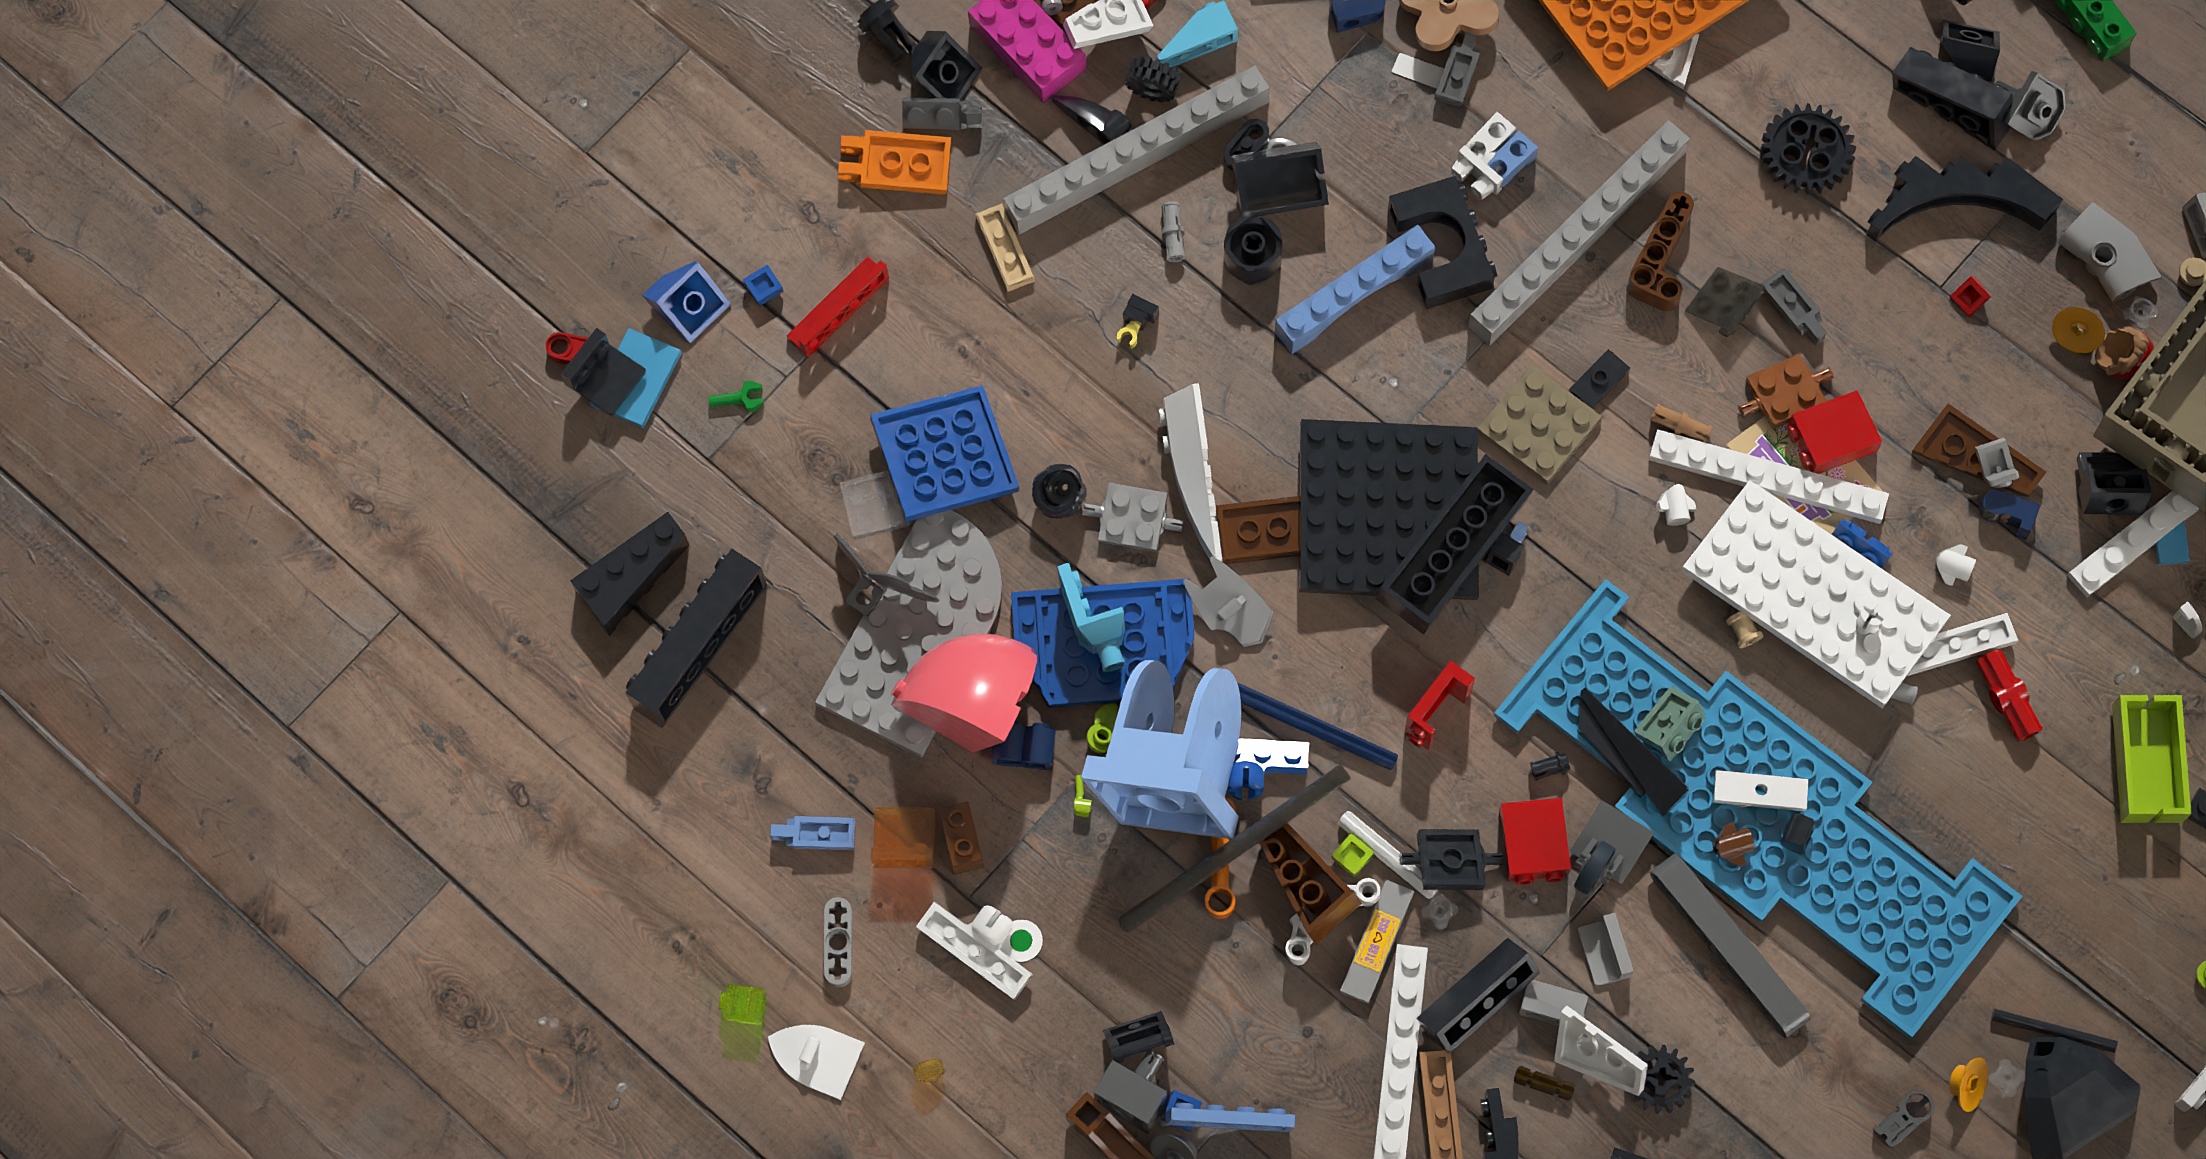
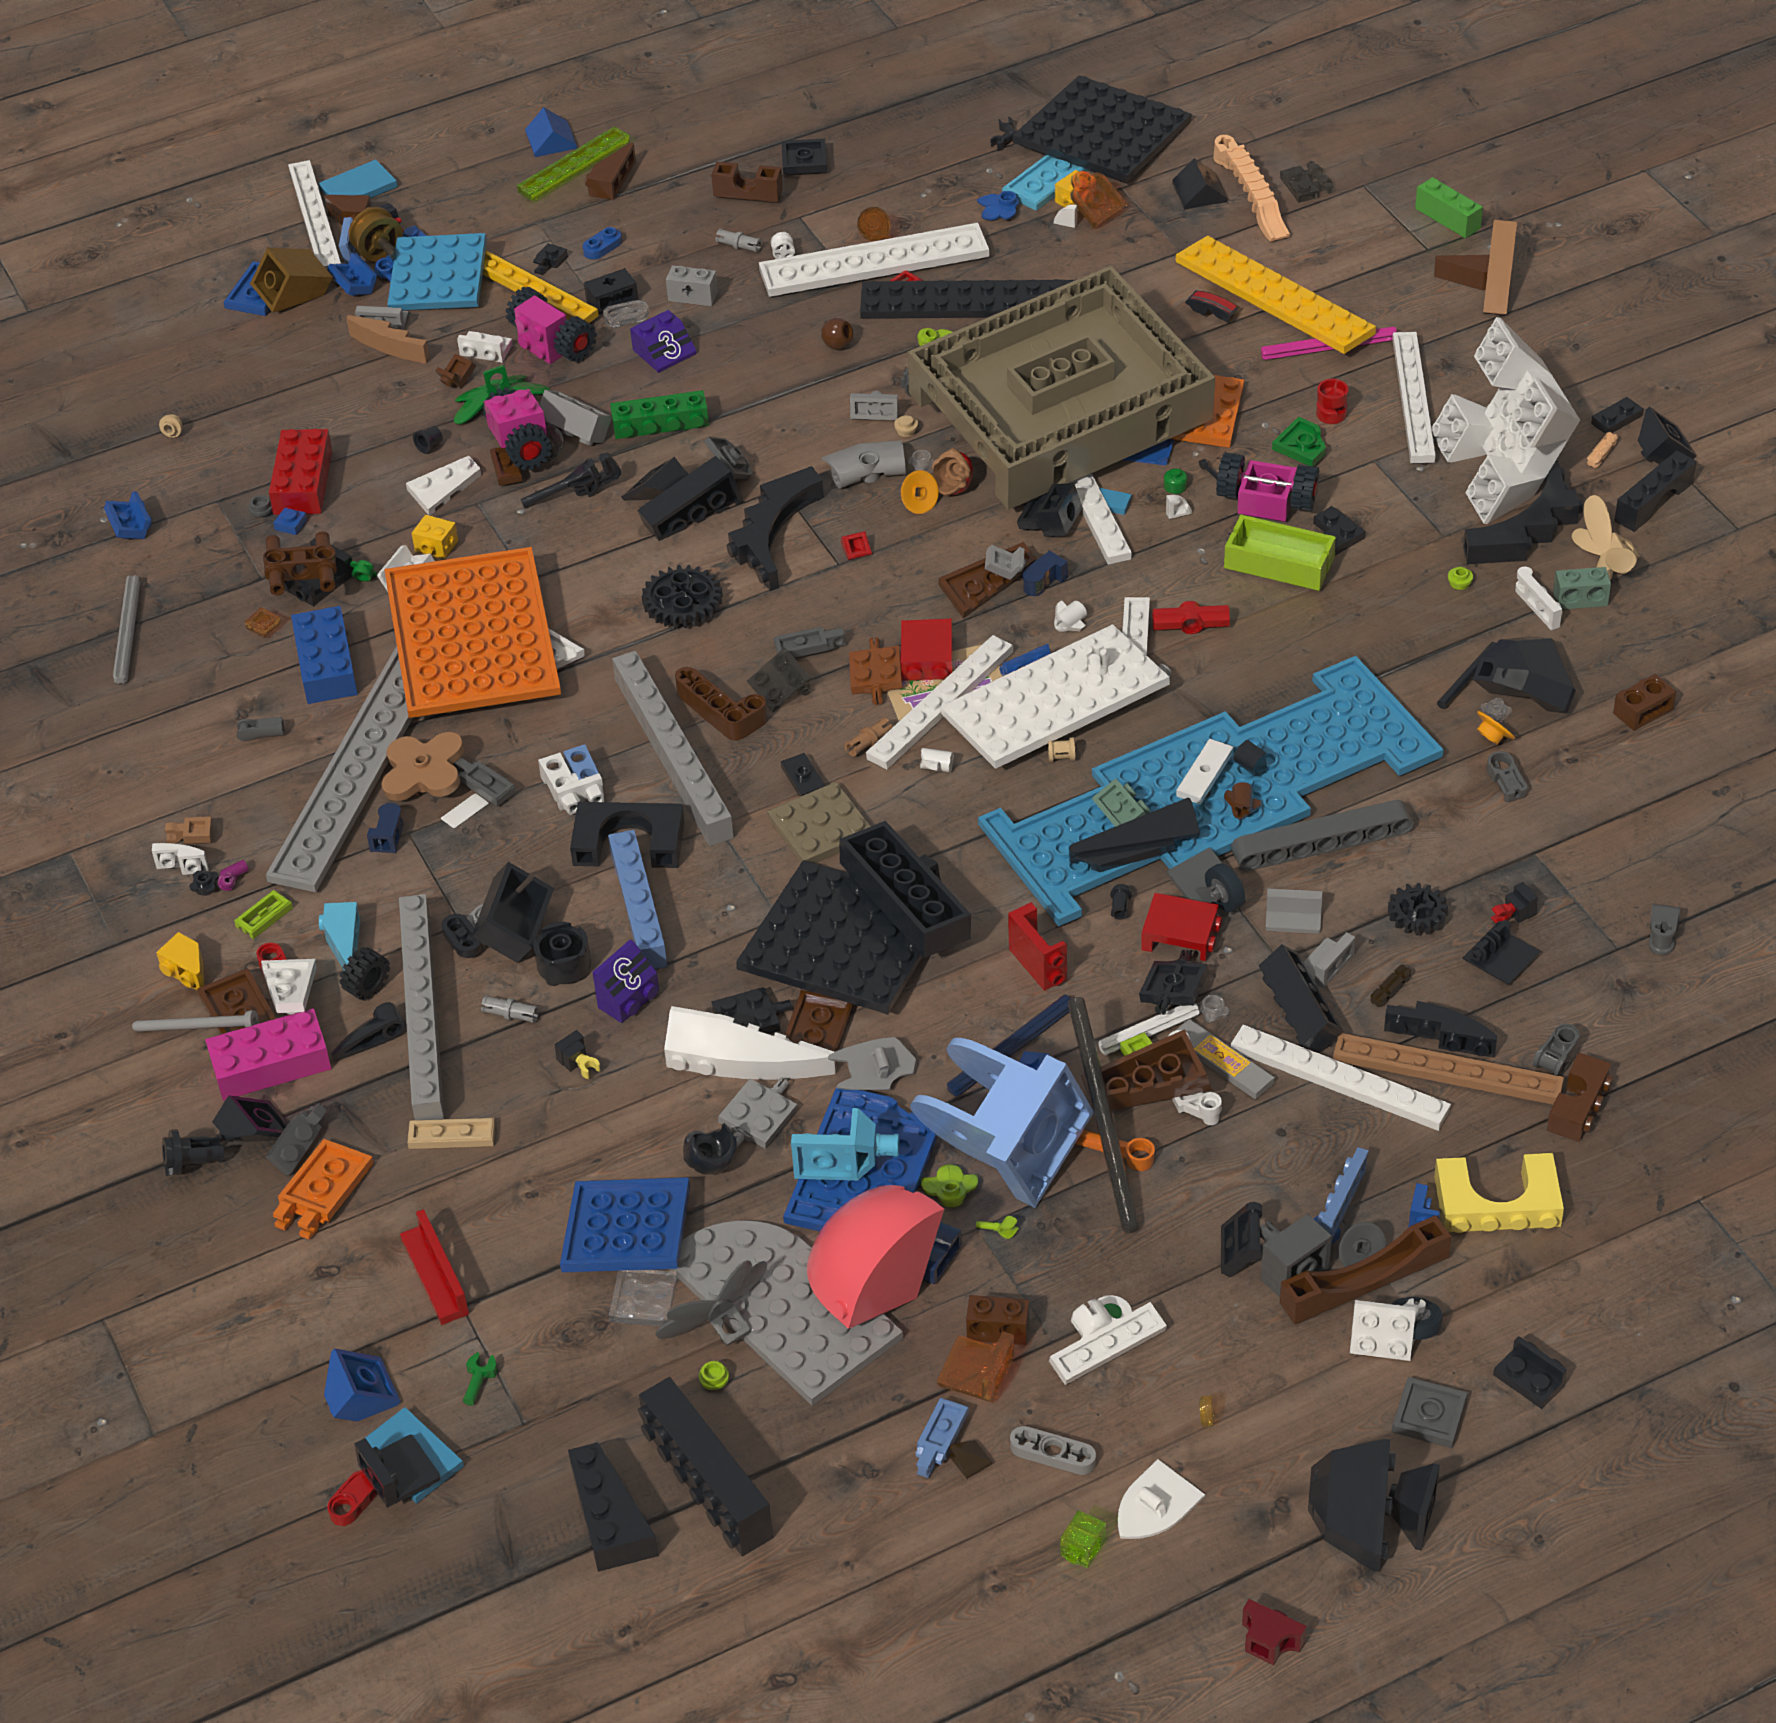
camera: 70 degrees left, 25 degrees down
(763, 285) = (379, 1322): blue plate -> none
(804, 870) = (969, 1457): none -> dark brown slope
(811, 604) = (713, 1375): none -> lime plate
(1235, 326) = (625, 982): none -> dark purple slope
(1251, 456) = (752, 1008): none -> black plate
(1596, 1054) = (1384, 933): white wing -> none

